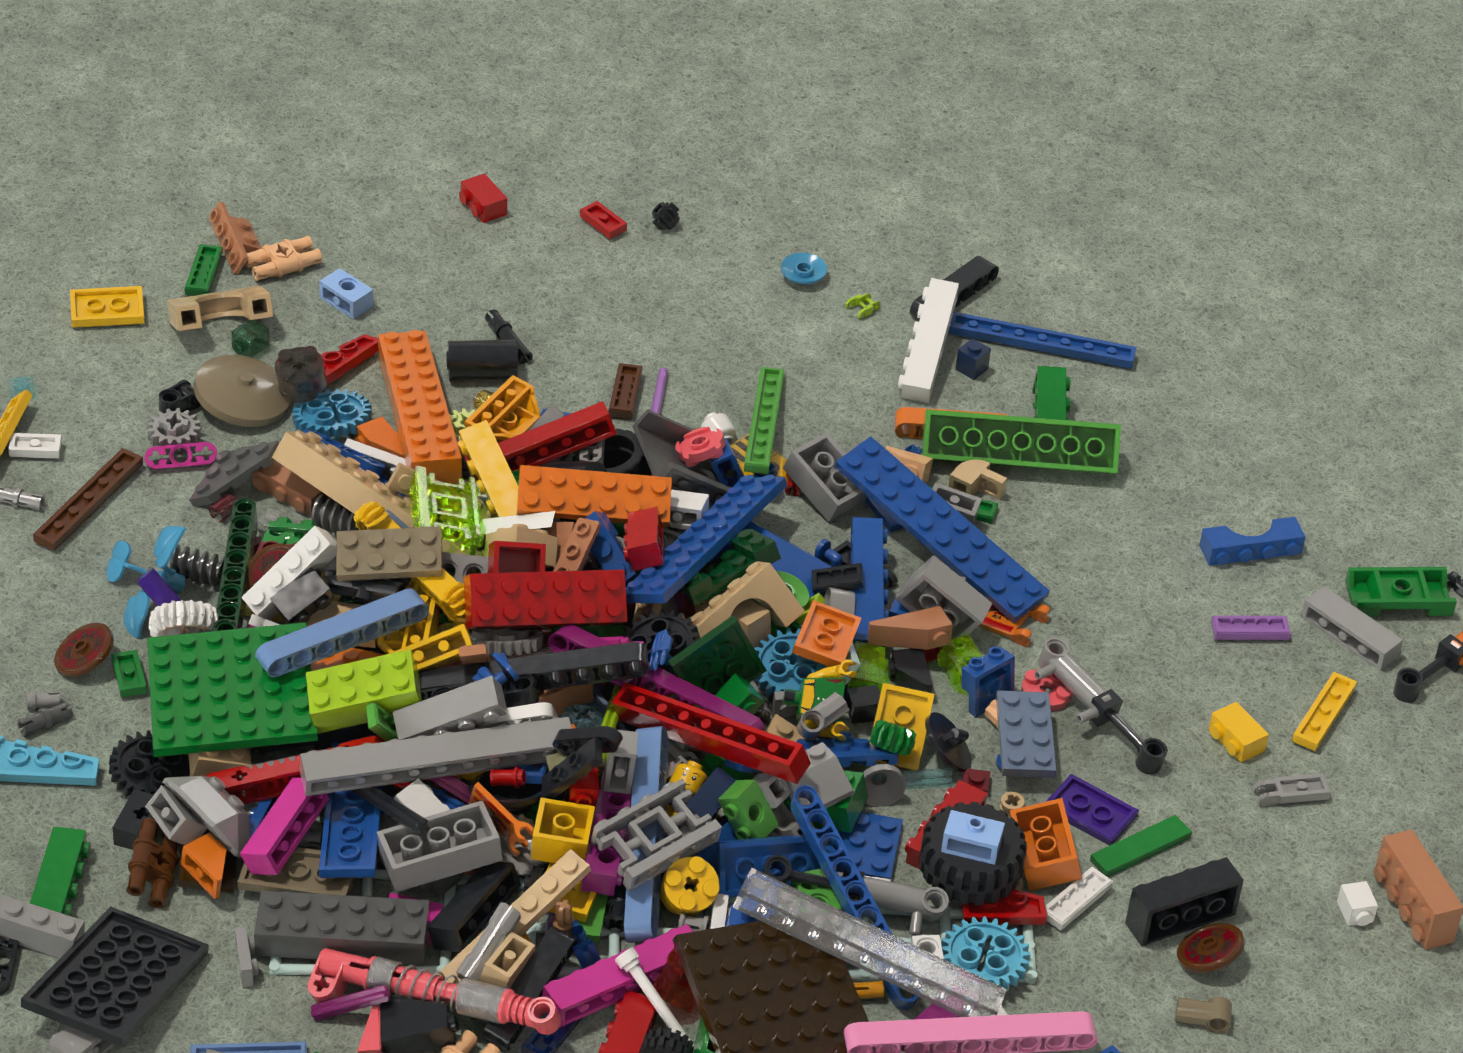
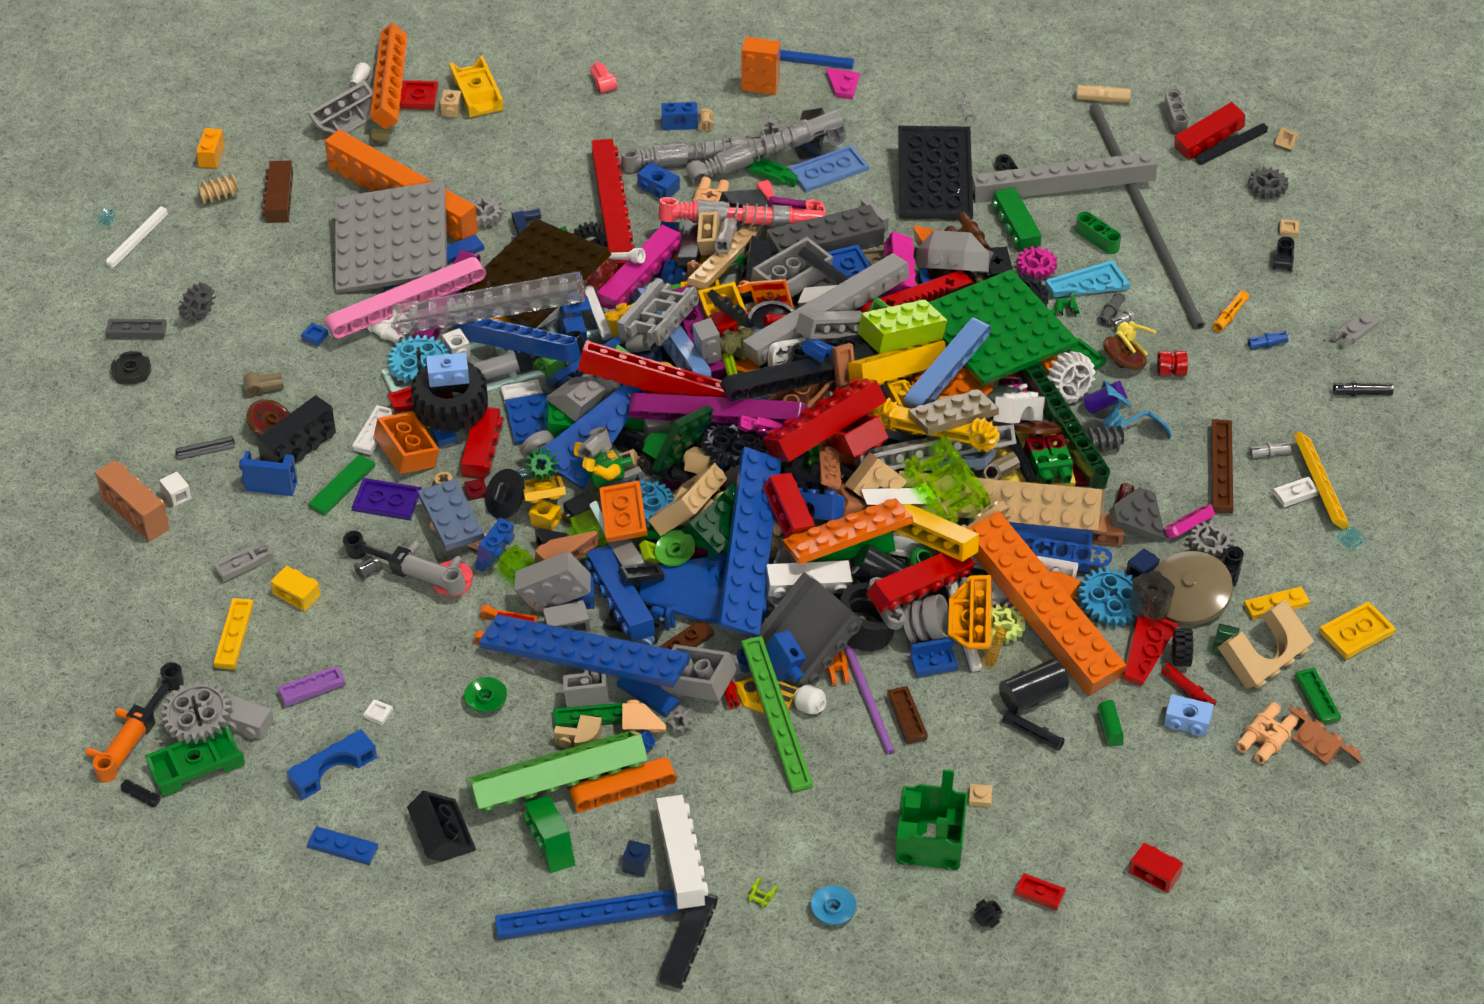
camera: 160 degrees right, 5 degrees up
(35, 617) = (1172, 363): none -> red wheel
(55, 672) = (1128, 333): none -> light yellow plant
(85, 808) = (1037, 262): none -> dark pink gear
(102, 751) = (1063, 302): none -> green piece
(161, 360) = (1295, 597): none -> yellow plate
(269, 427) = (1142, 563): none -> dark blue brick
(304, 333) = (1182, 647): none -> black tyre
(320, 312) = (1194, 691): none -> red pin
(429, 312) = (1110, 723): none -> green brick
(572, 739) = (733, 327): black beam -> none
(600, 308) = (980, 795): none -> tan plate
(660, 650) = (724, 420): blue piece -> none
(674, 275) = (936, 806): none -> green piece
(700, 446) = (800, 648): coral plate -> none
(810, 536) = (691, 636): none -> reddish brown plate
(1061, 550) = (485, 688): none -> green dish
(1146, 728) = (367, 567): none -> dark grey bush
(1157, 449) = (440, 826): none -> black slope
(1183, 582) = (378, 712): none -> white tile
(1247, 857) = (269, 476): none -> blue panel
(1262, 476) = (342, 845): none -> blue plate
(1304, 955) = (205, 447): none -> black axle
(1408, 614) = (180, 716): none -> light grey gear

